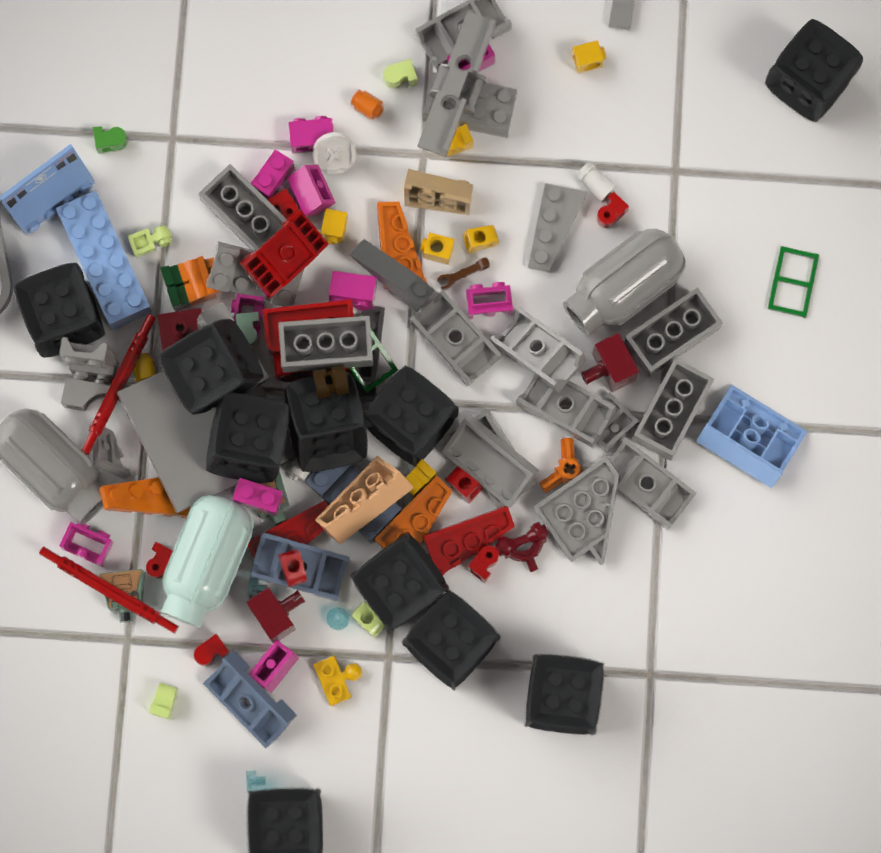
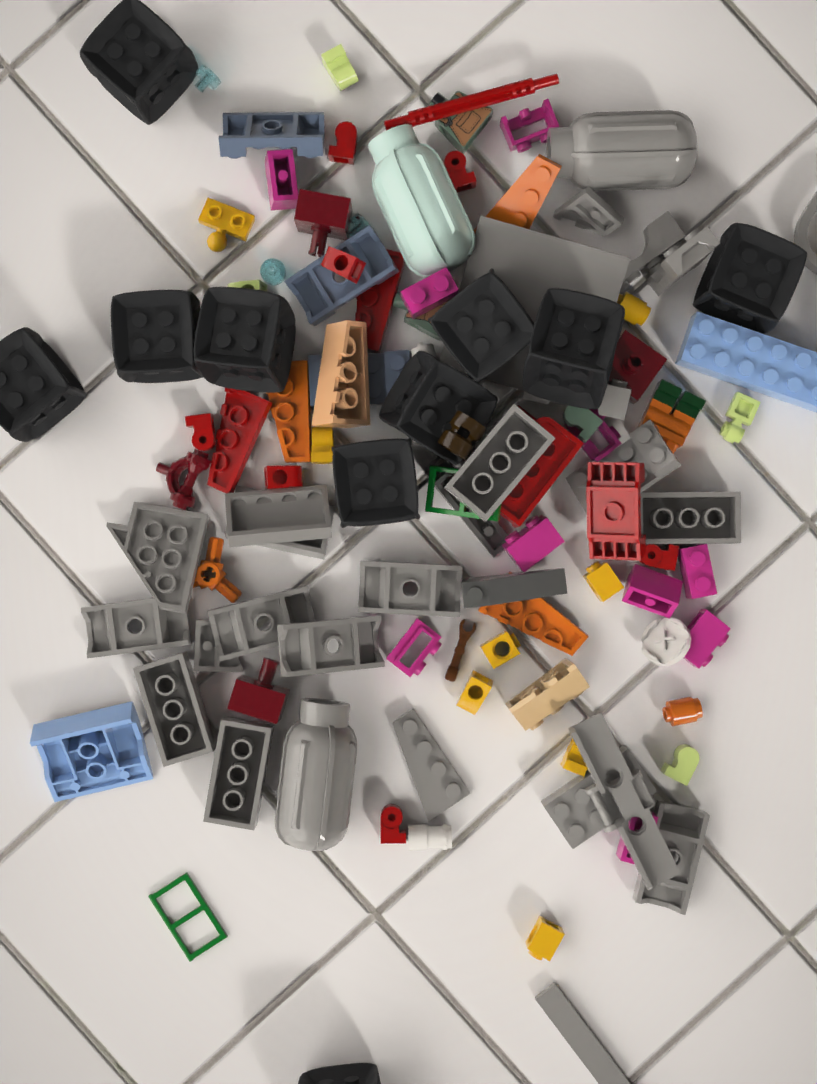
camera: 135 degrees right, 10 degrees up
(118, 383) = (637, 270): red axle -> none

